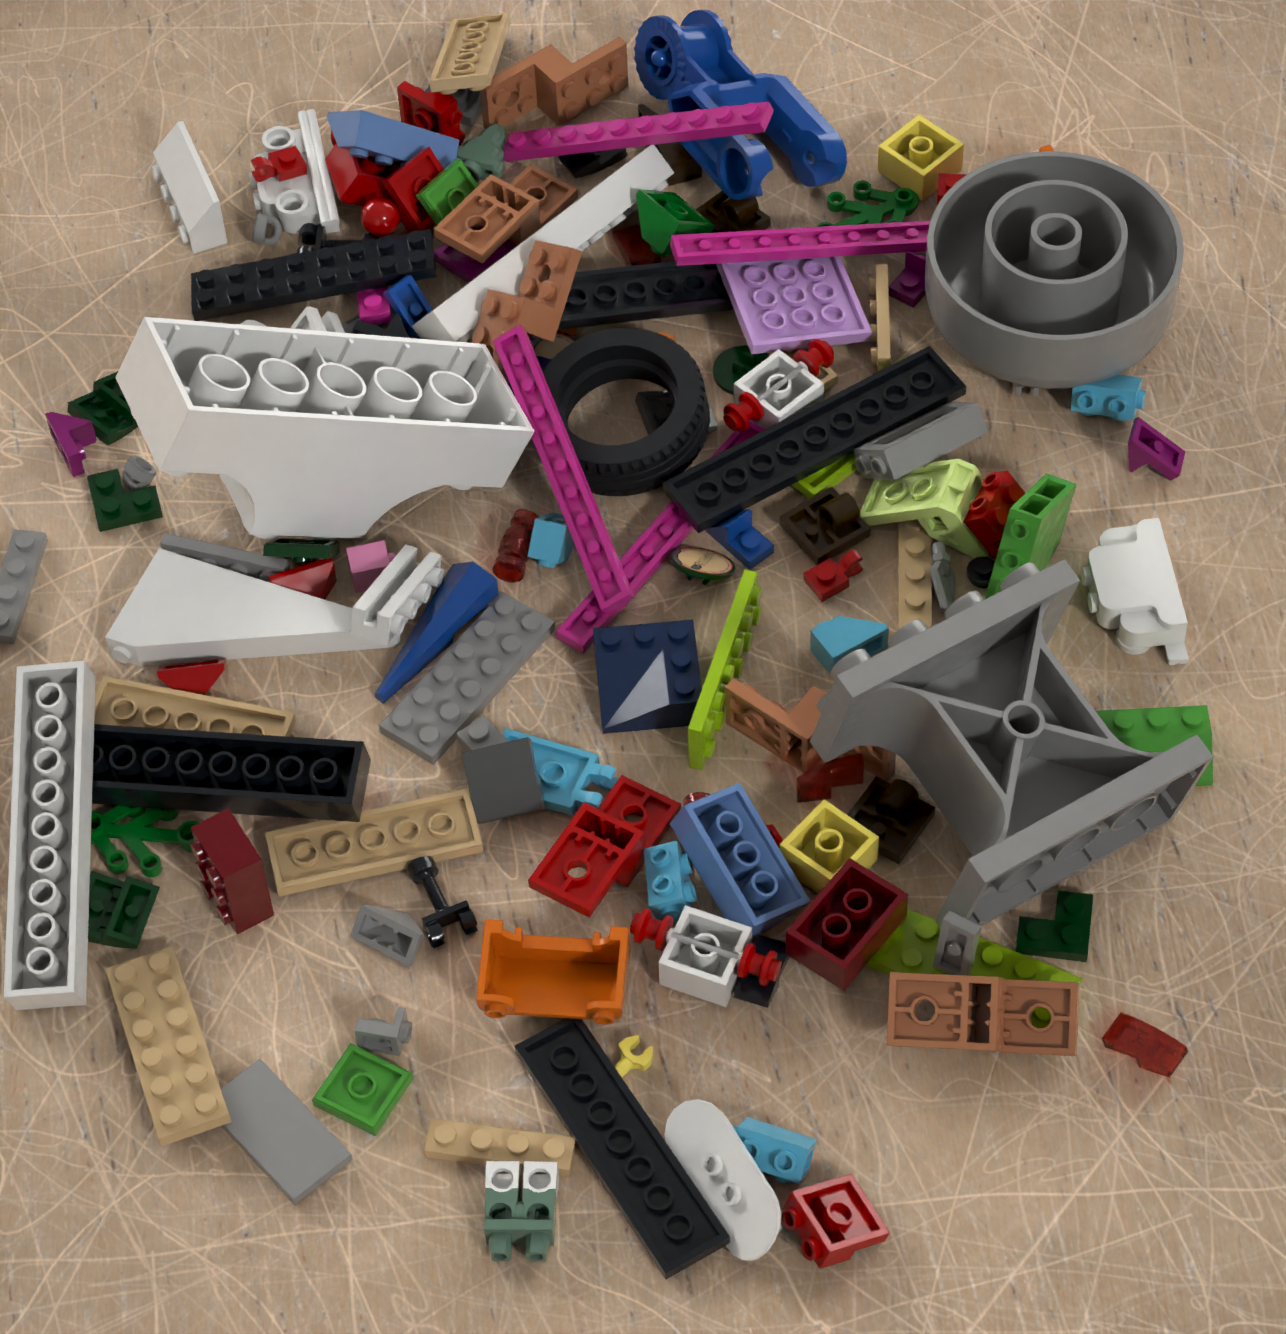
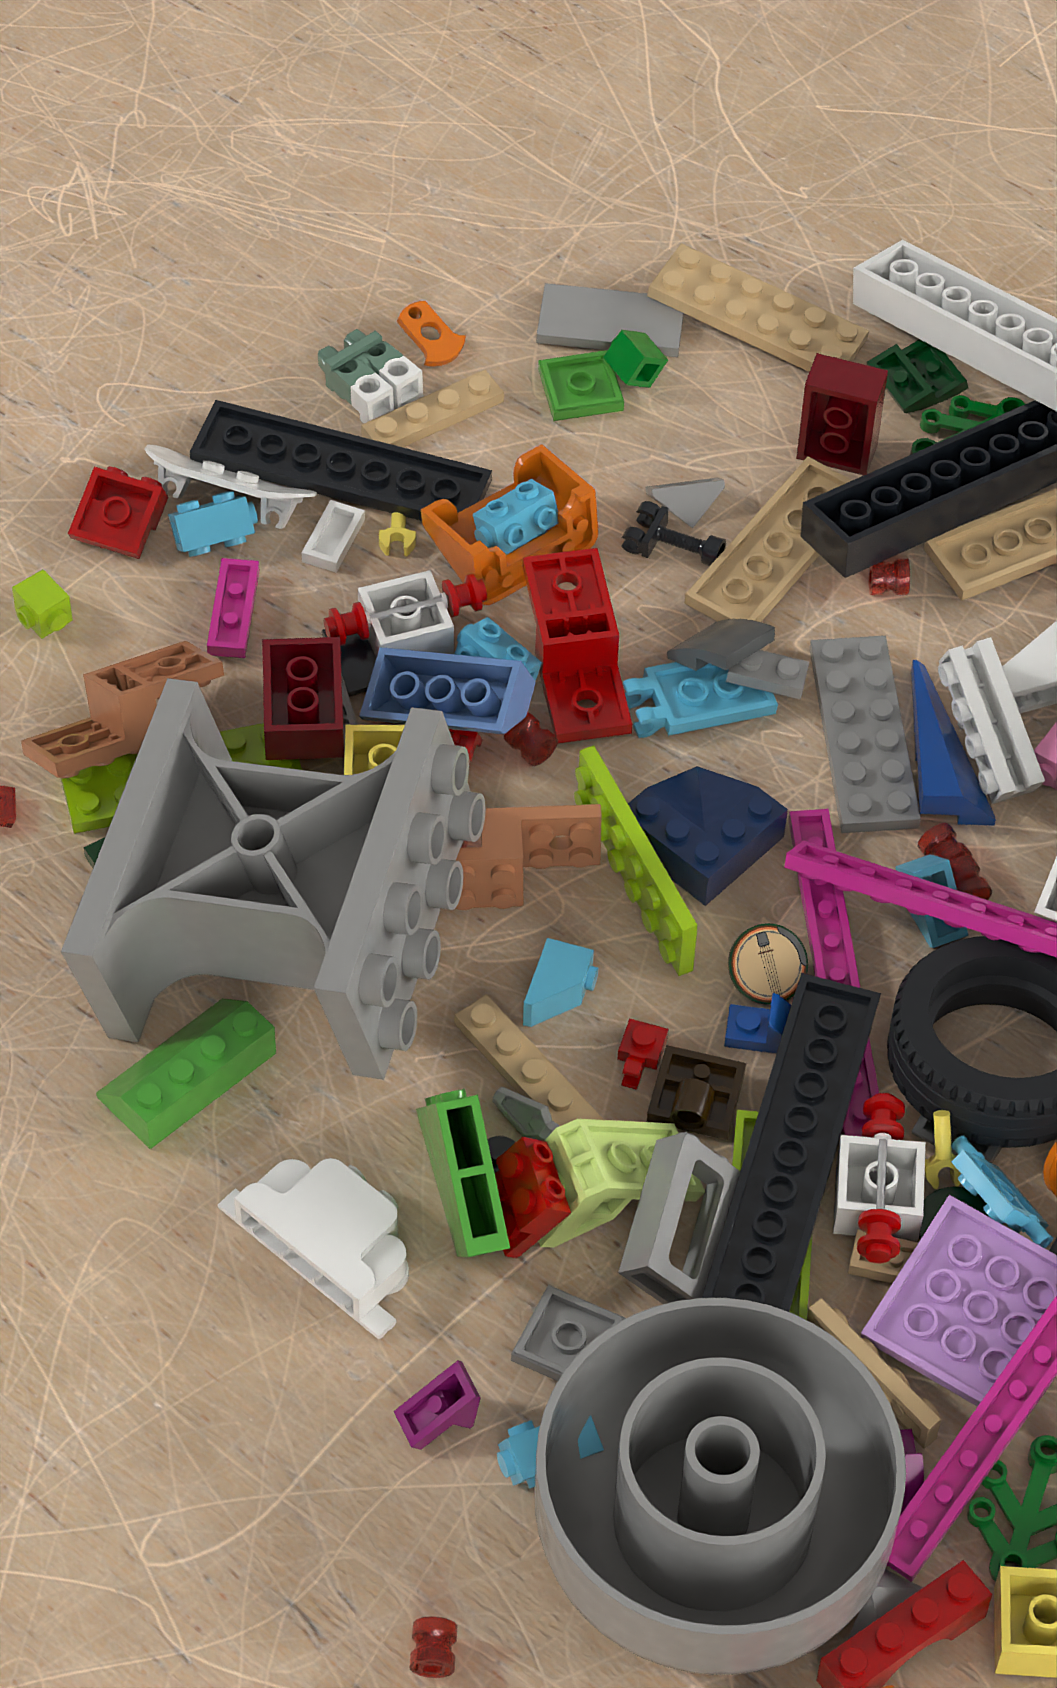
camera: 135 degrees right, 0 degrees up
(307, 1062) = (635, 358): none -> green brick
(383, 1037) = (603, 415): light grey bracket -> none
(431, 1237) = (437, 351): none -> orange piece
(551, 965) = (516, 517): none -> medium azure brick
(685, 1084) = (333, 536): none -> white tile
(717, 340) = (1002, 1197): none -> medium azure plate
(719, 389) = (943, 1151): none -> light yellow bar
(815, 1074) = (233, 608): none -> dark pink plate
(963, 1178) = (42, 604): none -> lime brick
(1036, 451) = (559, 1332): none -> light grey tile
(1261, 348) = (433, 1647): none -> clear red wheel

